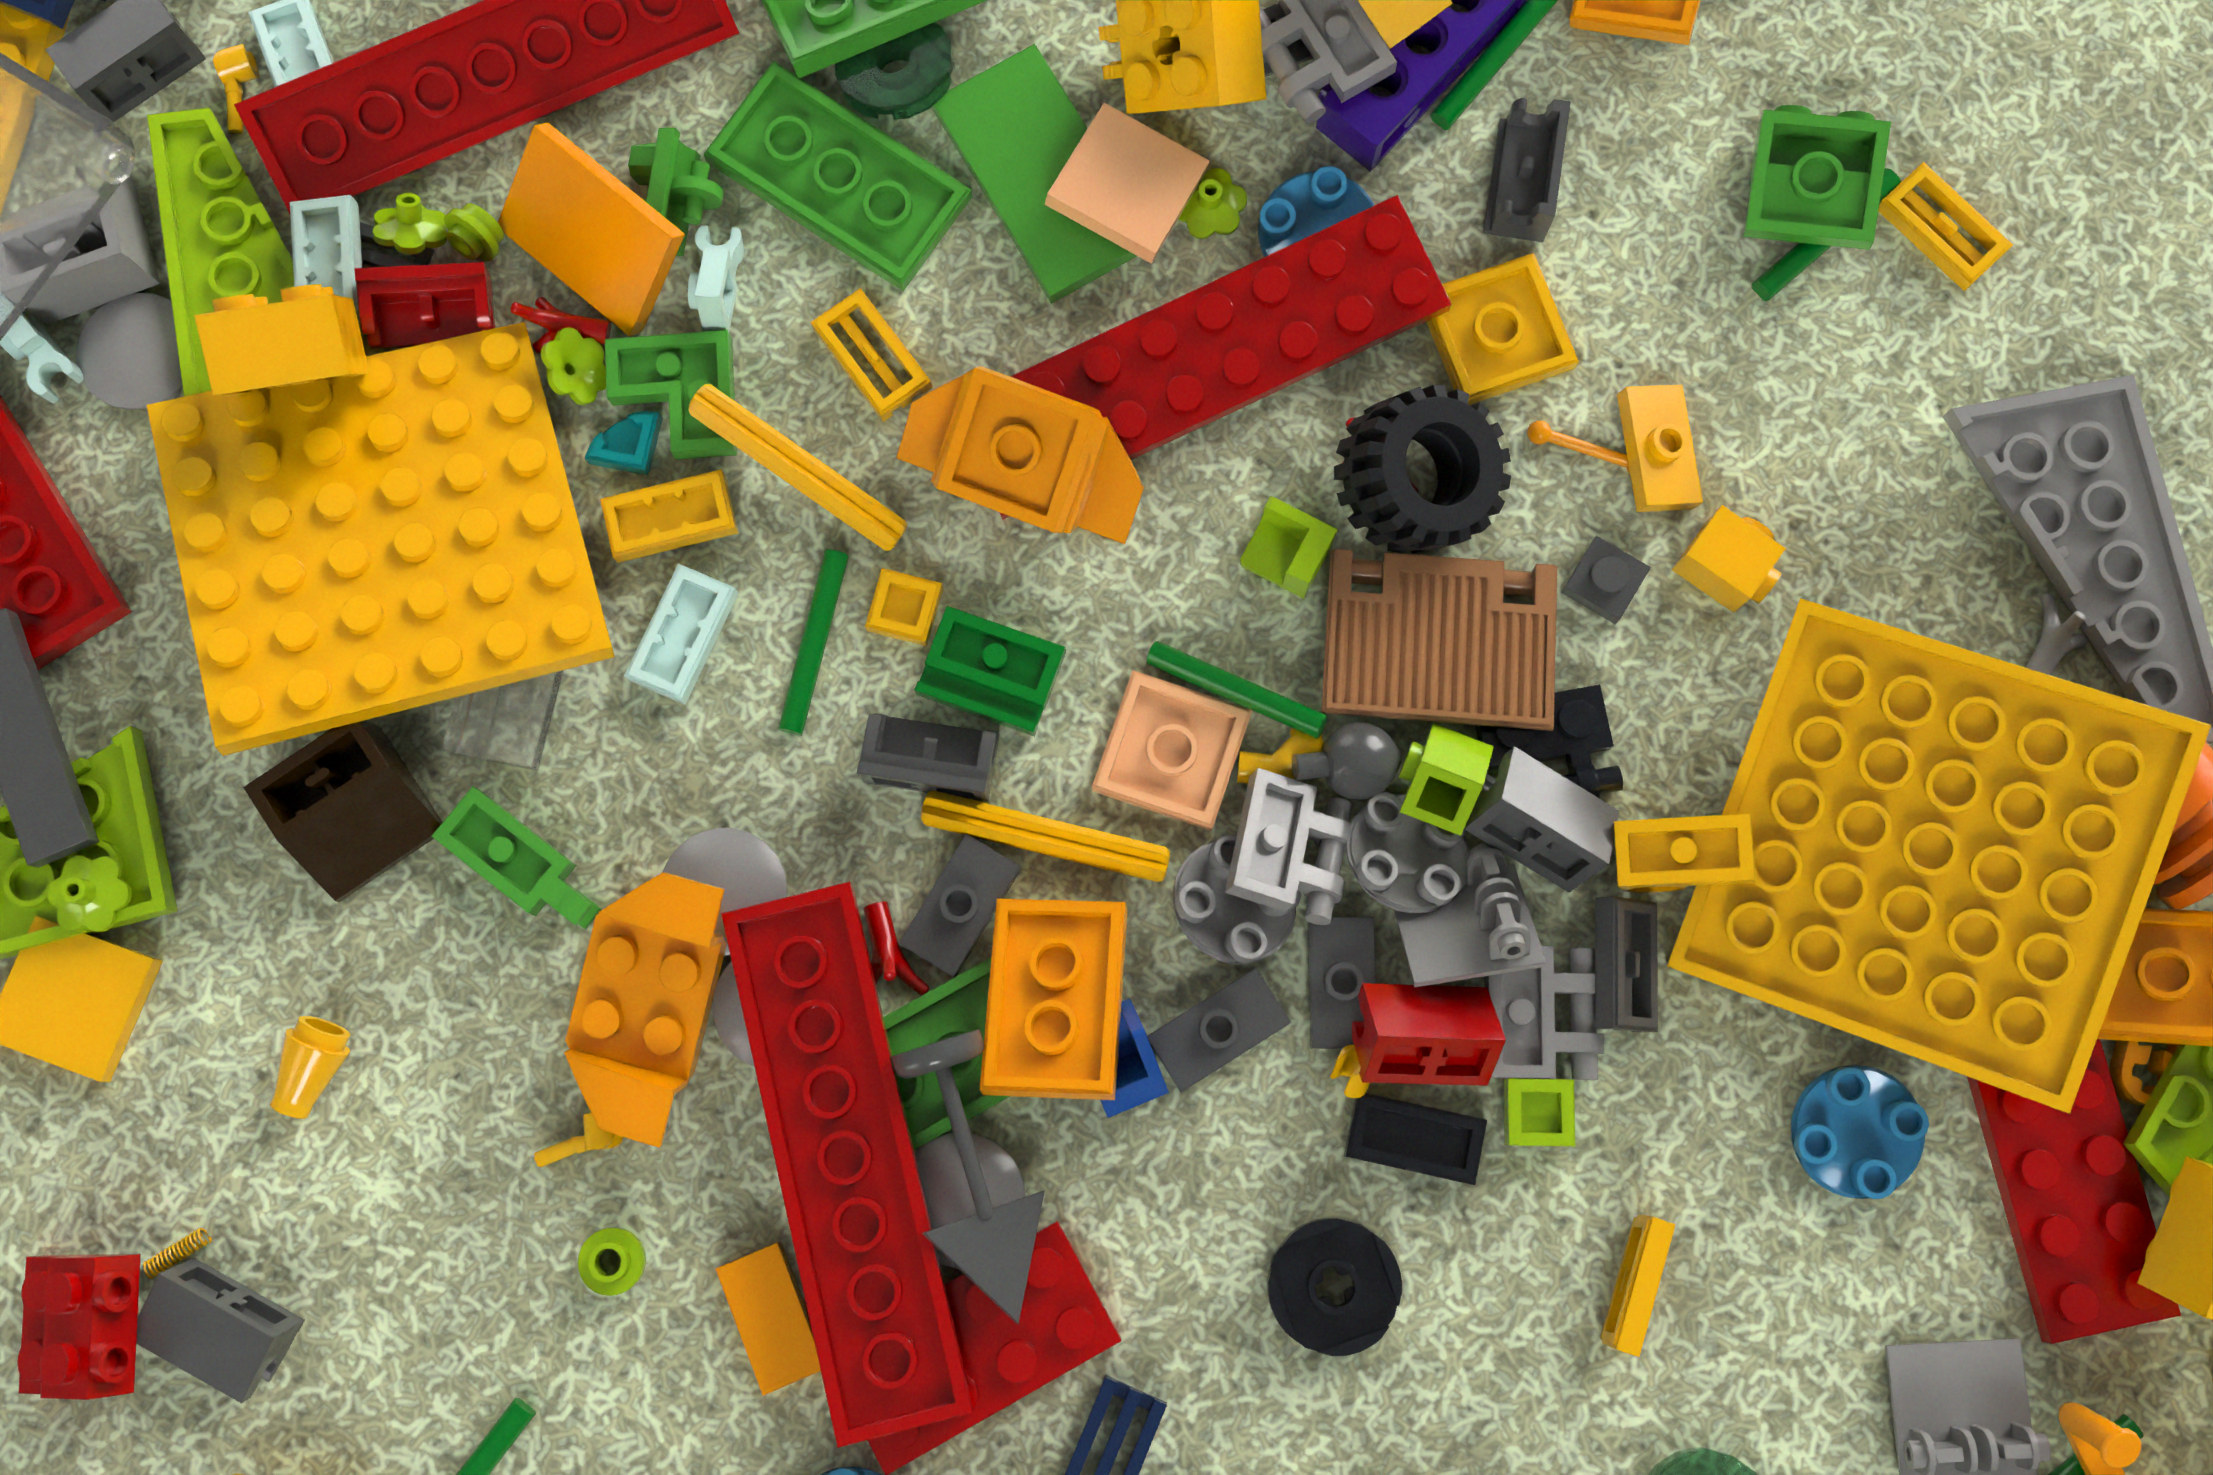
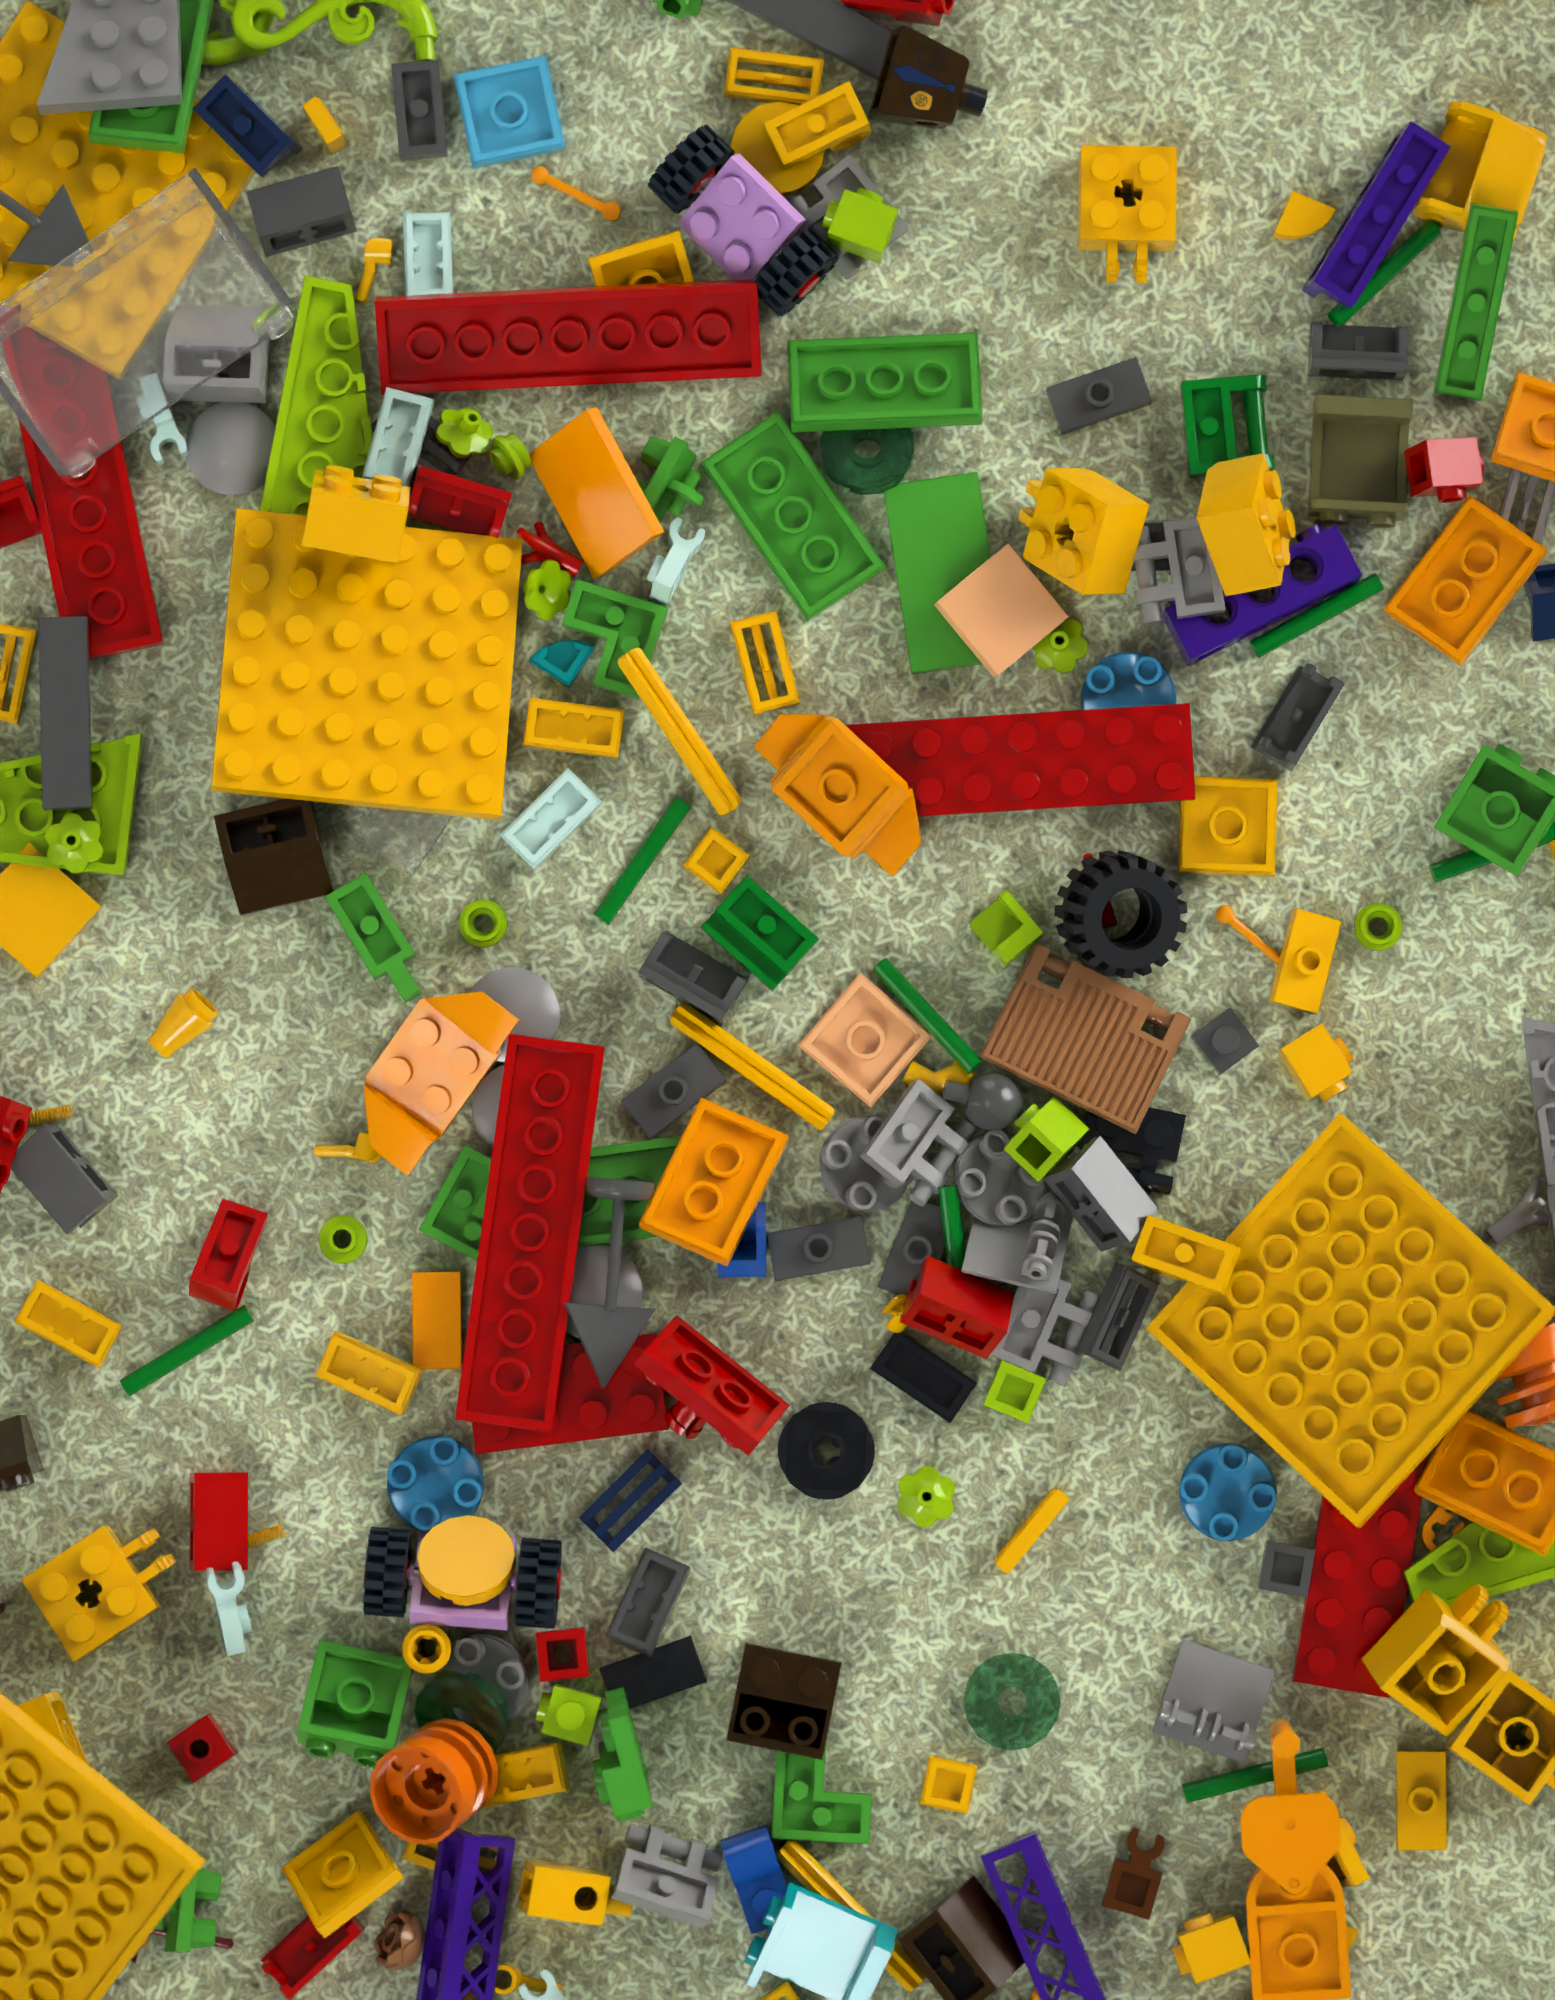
camera: 20 degrees right, 5 degrees up
(463, 1355) = (227, 1255): none -> red plate
(629, 782) = (472, 912): none -> lime plate
(707, 1424) = (369, 1373): none -> yellow plate
(742, 1161) = (460, 1204): none -> bright green plate
(886, 952) = (609, 1102): red bar -> none
(1155, 1268) = (709, 1388): none -> red plate
(1375, 934) = (952, 1225): none -> green bar
(1465, 1286) = (911, 1501): none -> lime plant
(1737, 361) = (1385, 913): none -> lime plate
(1976, 1201) = (1286, 1569): none -> dark grey plate

